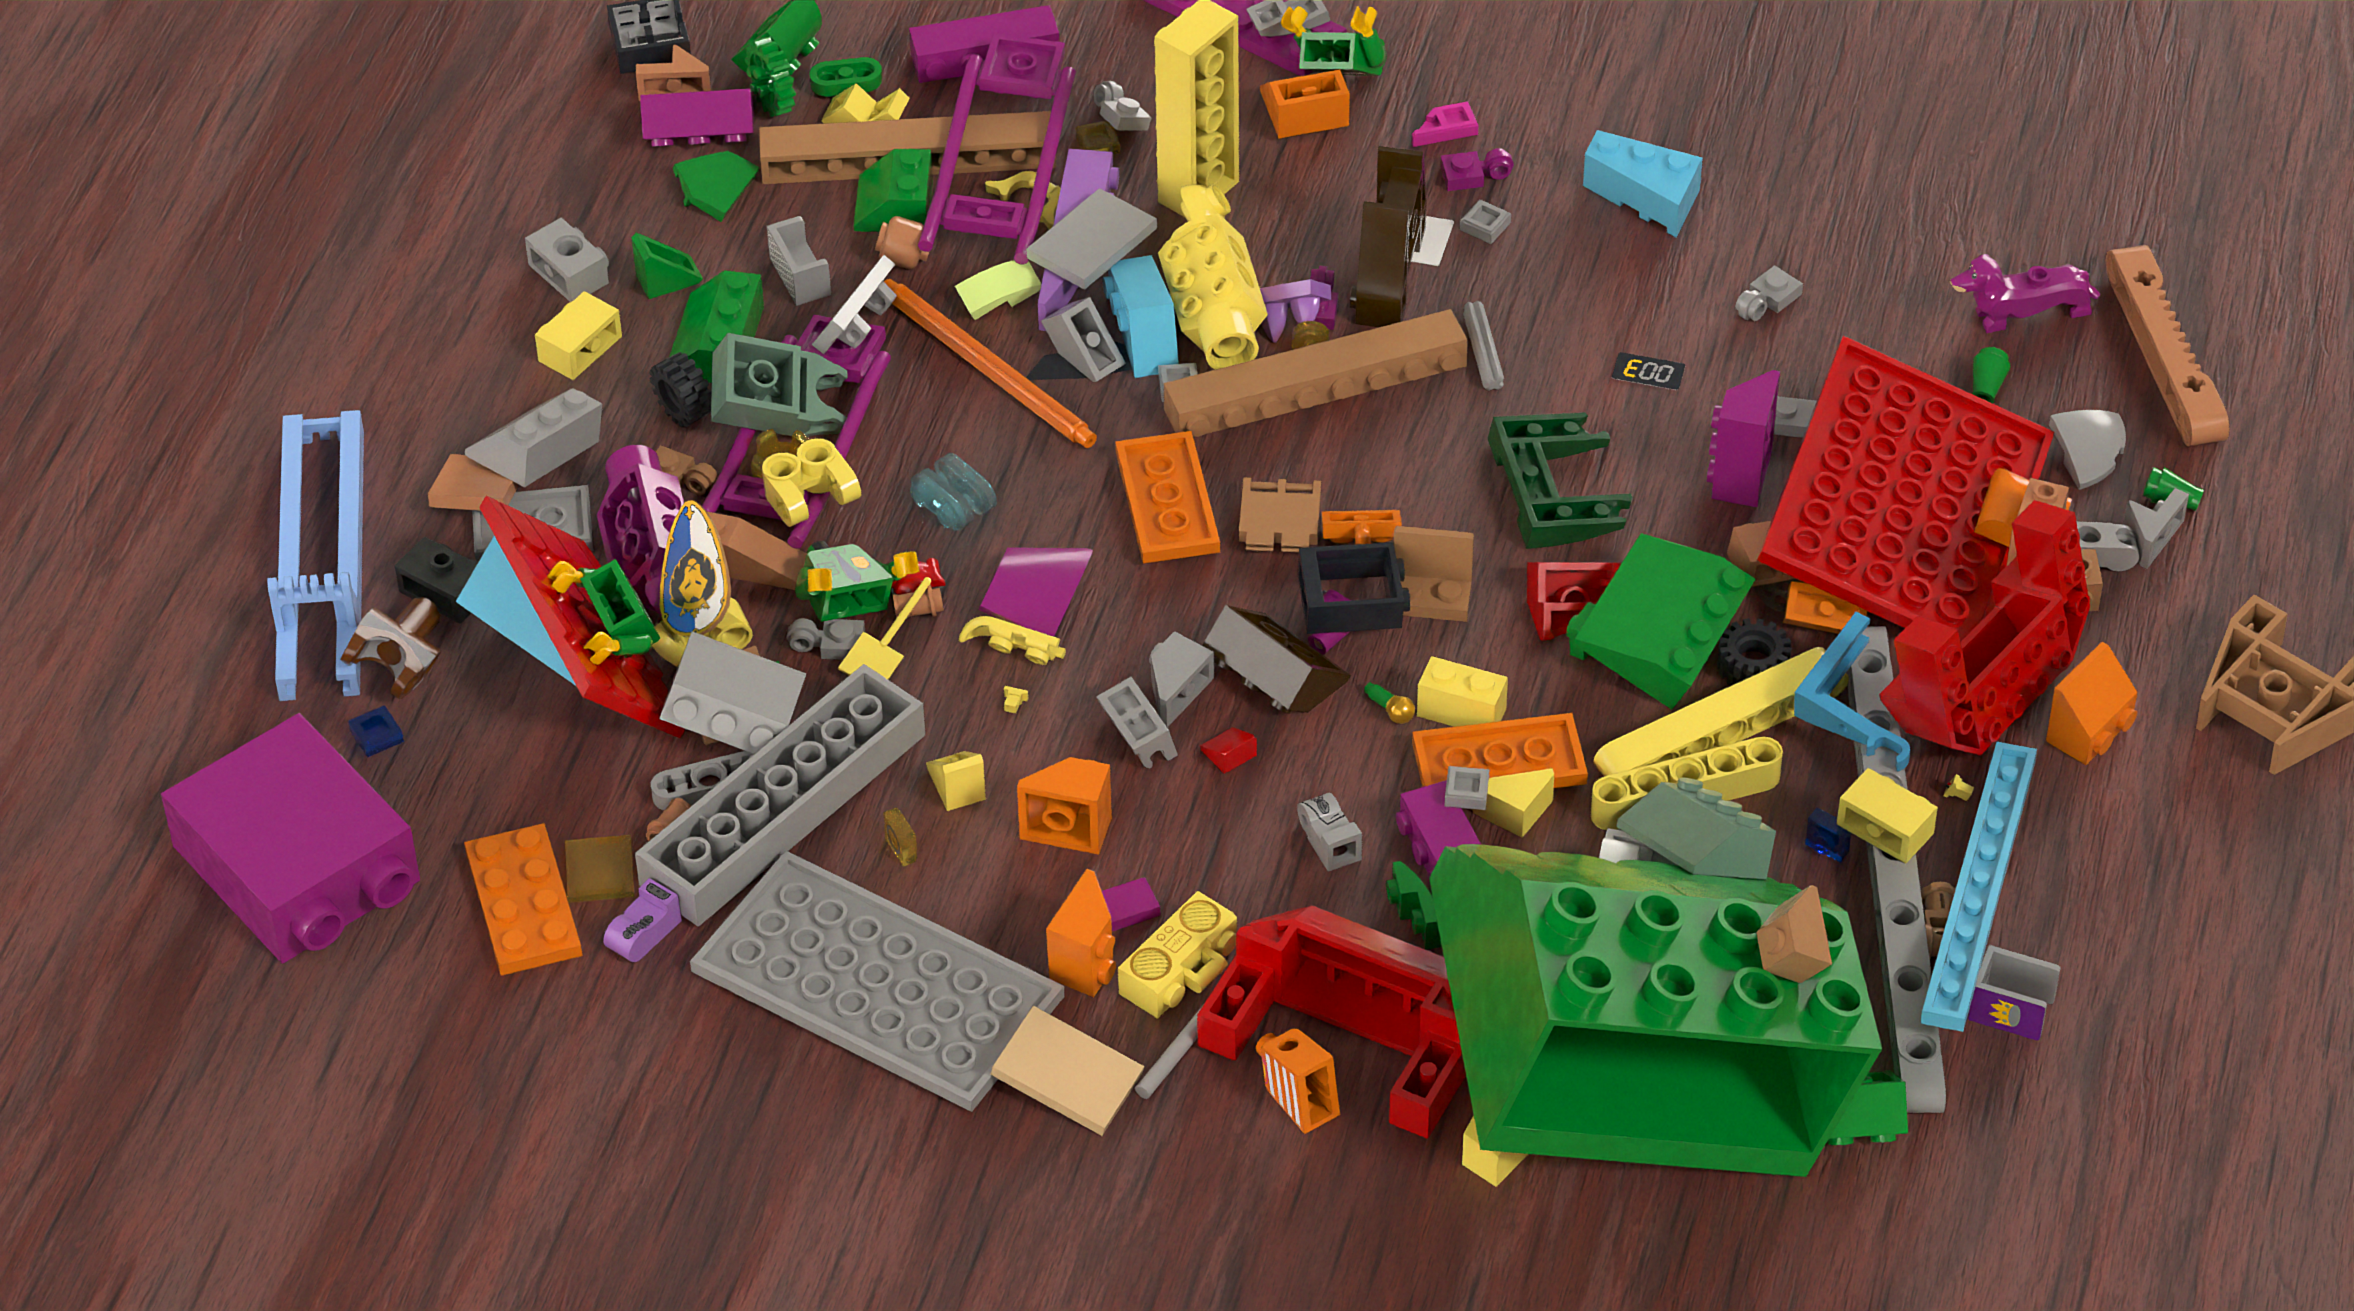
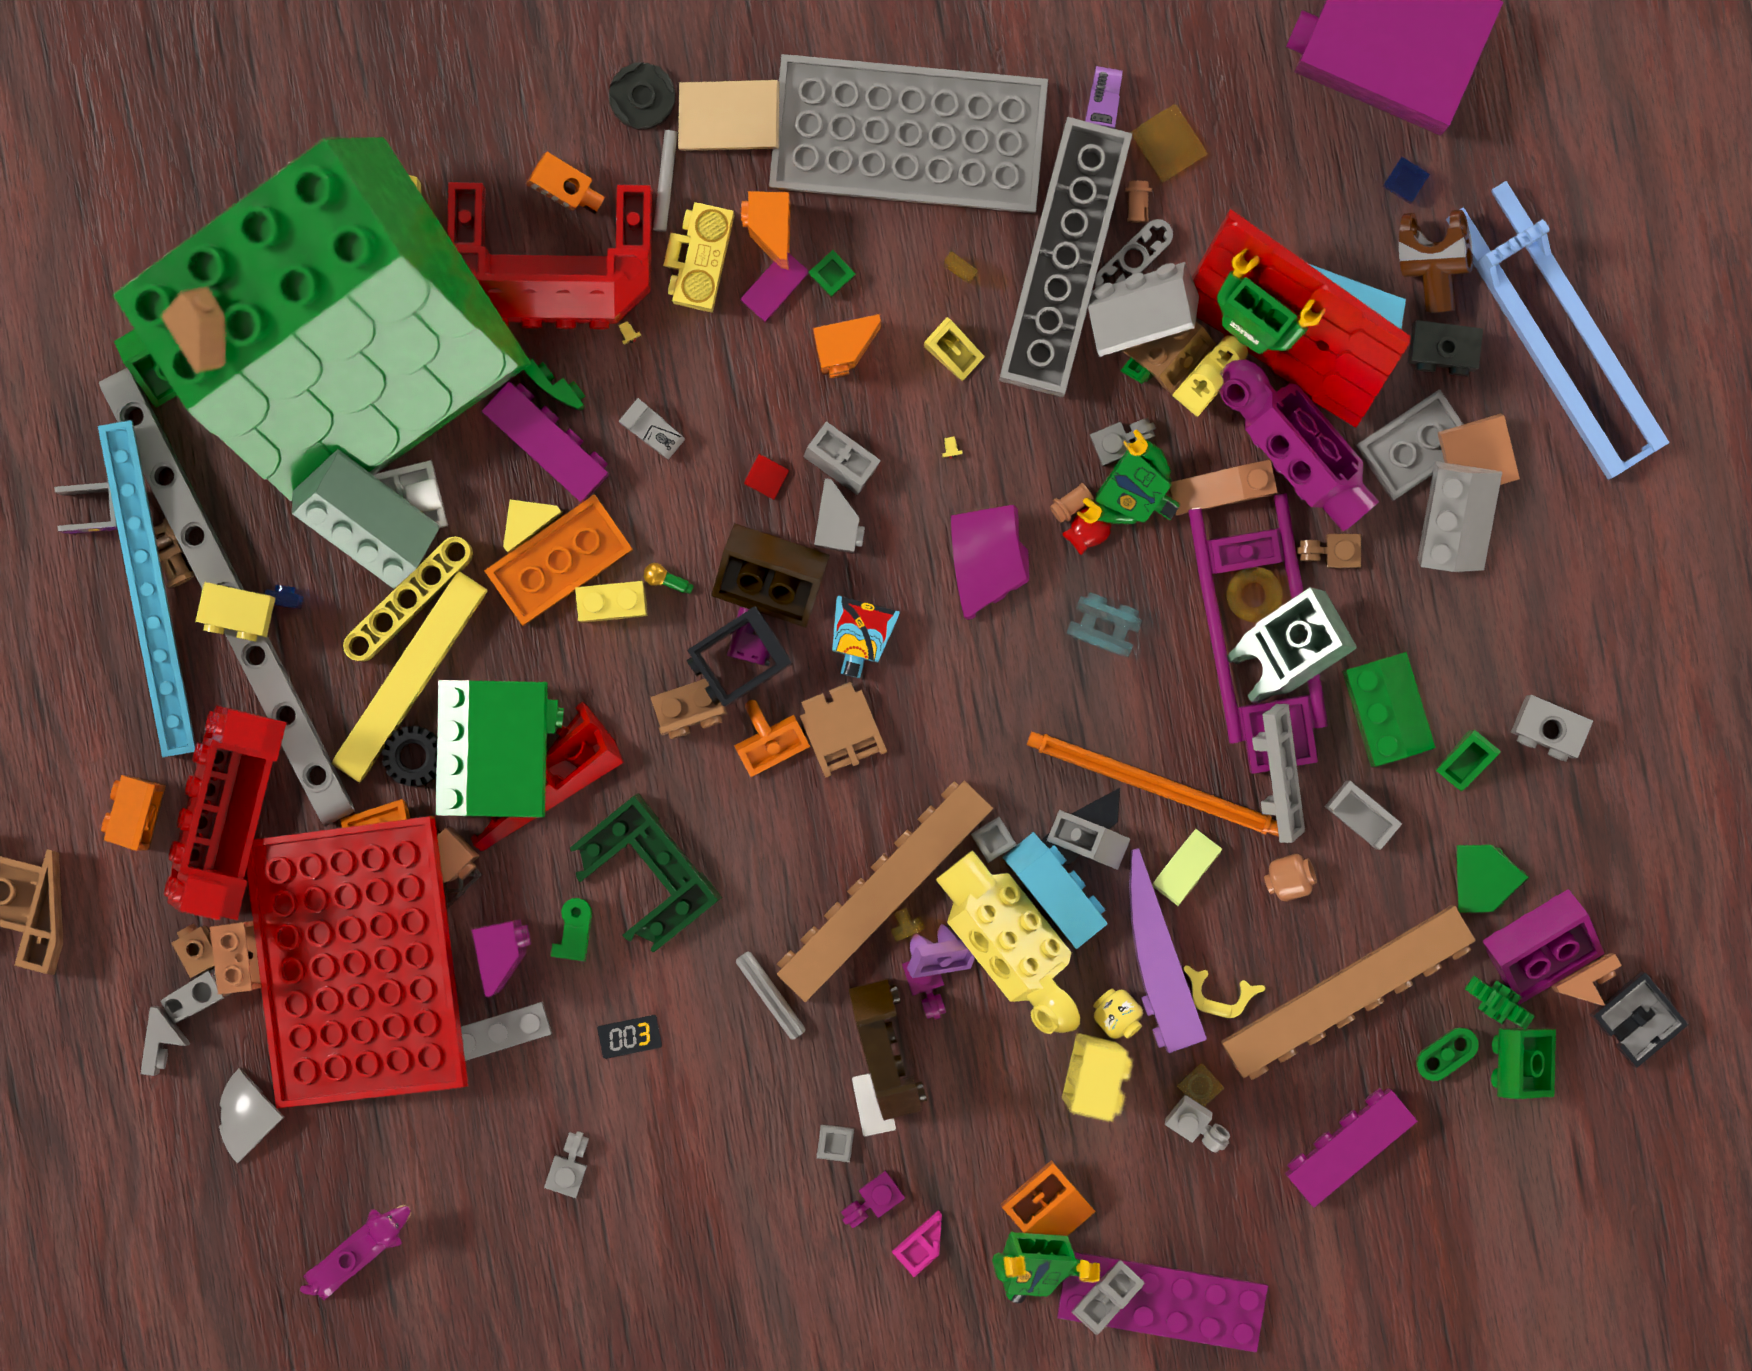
camera: 150 degrees right, 40 degrees up
(523, 899) = (1207, 86): orange plate -> none
(578, 335) = (1494, 649): light yellow brick -> none
(681, 389) = (1371, 619): black tyre -> none
(694, 574) = (1225, 385): shield -> none
(816, 470) = (1216, 563): light yellow piece -> none
(858, 106) = (1408, 1021): light yellow slope -> none
(876, 653) = (1075, 430): light yellow piece -> none
(893, 187) = (1330, 932): green slope -> none
(1007, 635) = (987, 498): light yellow piece -> none
(1016, 68) = (1293, 1104): magenta plate -> none
(1043, 888) = (832, 273): none -> green plate
(1091, 238) = (1129, 935): light grey tile -> none
(1147, 197) = (1118, 1014): none -> light yellow head
(1155, 1139) = (642, 96): none -> pearl dark grey tile
(1167, 497) = (937, 704): orange plate -> none
(1206, 577) = (861, 633): none -> torso
(1466, 788) = (559, 496): light grey tile -> none
(1643, 176) = (721, 1244): medium azure wedge -> none
(1659, 455) = (577, 919): none -> green leg
(1818, 708) = (339, 724): dark azure hinge -> none
(1958, 788) = (211, 698): light yellow piece -> none
(1989, 372) = (353, 1155): green cone -> none
(2002, 506) = (276, 1003): orange brick -> none
(2163, 482) = (165, 1089): green cone -> none
(2185, 389) = (165, 1181): nougat gear -> none

